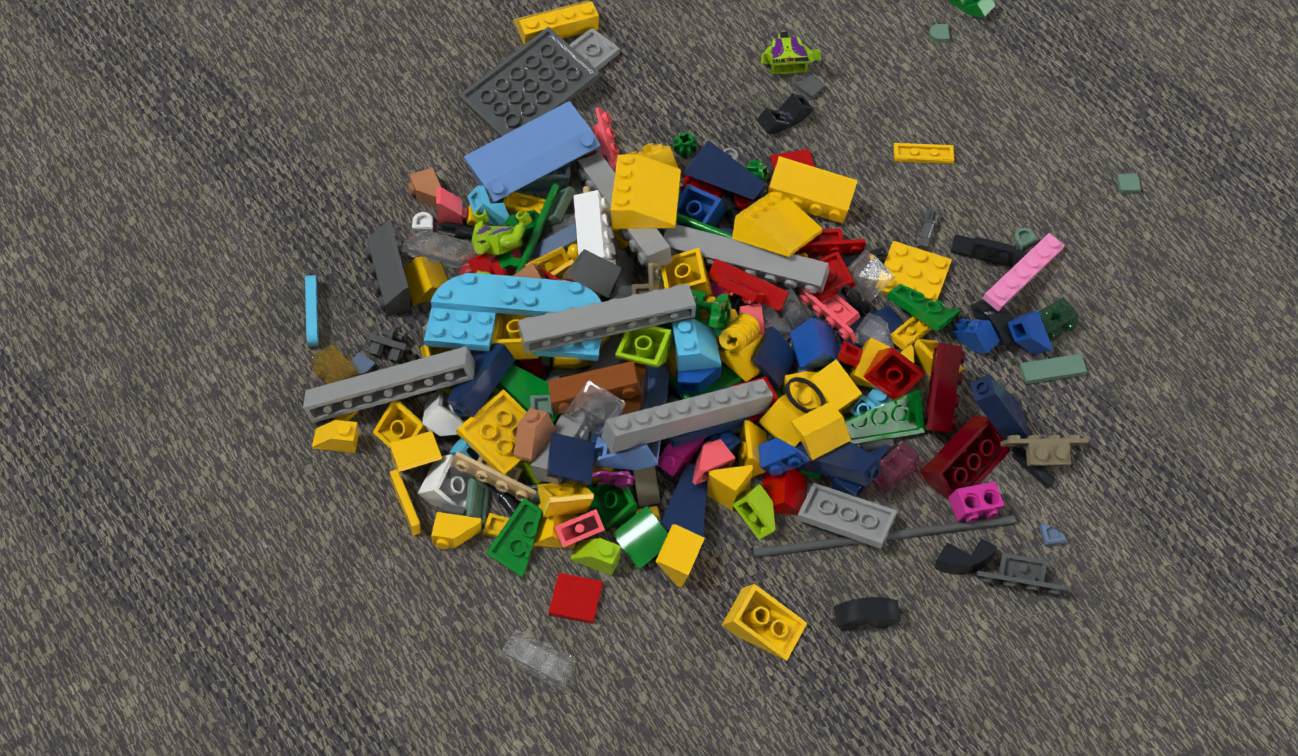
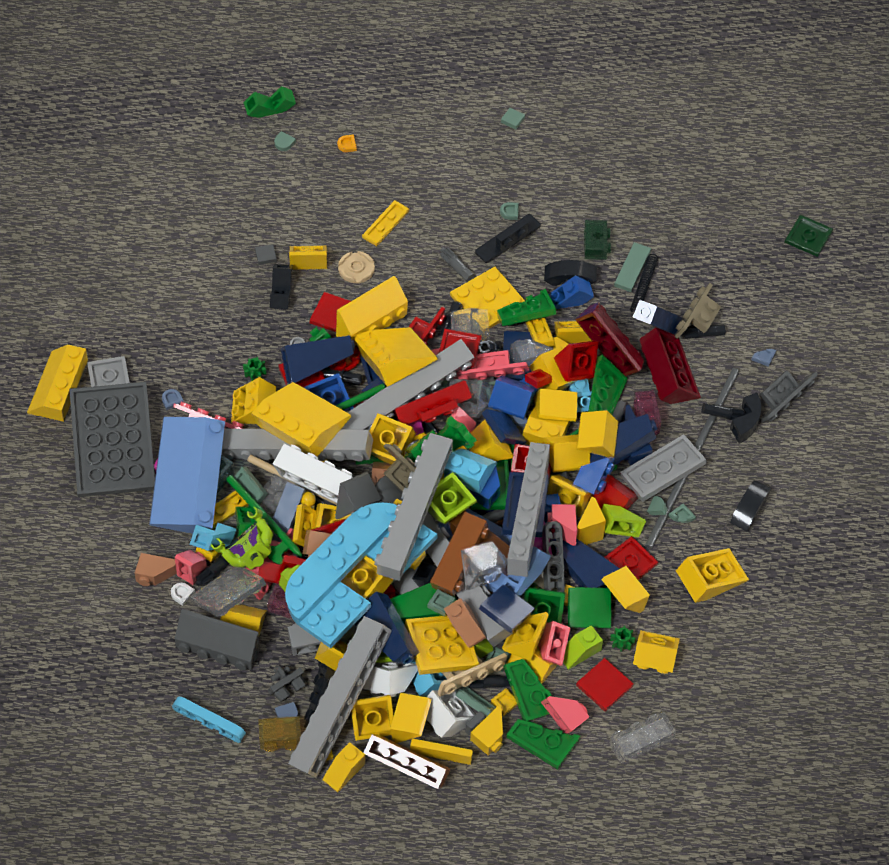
camera: 55 degrees left, 0 degrees up
(373, 479) = (407, 761): none -> brick
(475, 581) = (544, 743): none -> green wing
(516, 580) = (566, 712): none -> coral slope
(608, 104) = (170, 397): none -> sand blue tile
(620, 479) = (543, 587): magenta plate -> none
(632, 579) = (620, 643): none -> green gear
(641, 619) = (656, 652): none -> yellow slope
(663, 473) = (557, 559): none -> dark grey beam
(725, 546) = (634, 557): none -> red tile
(739, 333) = (481, 430): yellow piece -> none
(788, 55) = (227, 248): lime torso -> none
(801, 535) = (657, 506): none -> sand green tile
(812, 385) = (554, 436): black piece -> none
(812, 562) = (682, 514): none -> sand green tile
(834, 116) = (308, 257): none -> yellow slope
(853, 163) = (356, 267): none -> tan tile
(953, 531) = (721, 411): none -> black piece
(975, 498) = (710, 382): dark pink brick -> none
(981, 78) = (347, 143): none -> light orange tile
(1023, 272) = (544, 229): bright pink plate -> none
(1030, 333) = (599, 257): blue slope -> none
(1047, 386) = (635, 299): none -> black piece
(1229, 498) = (808, 235): none -> dark green tile

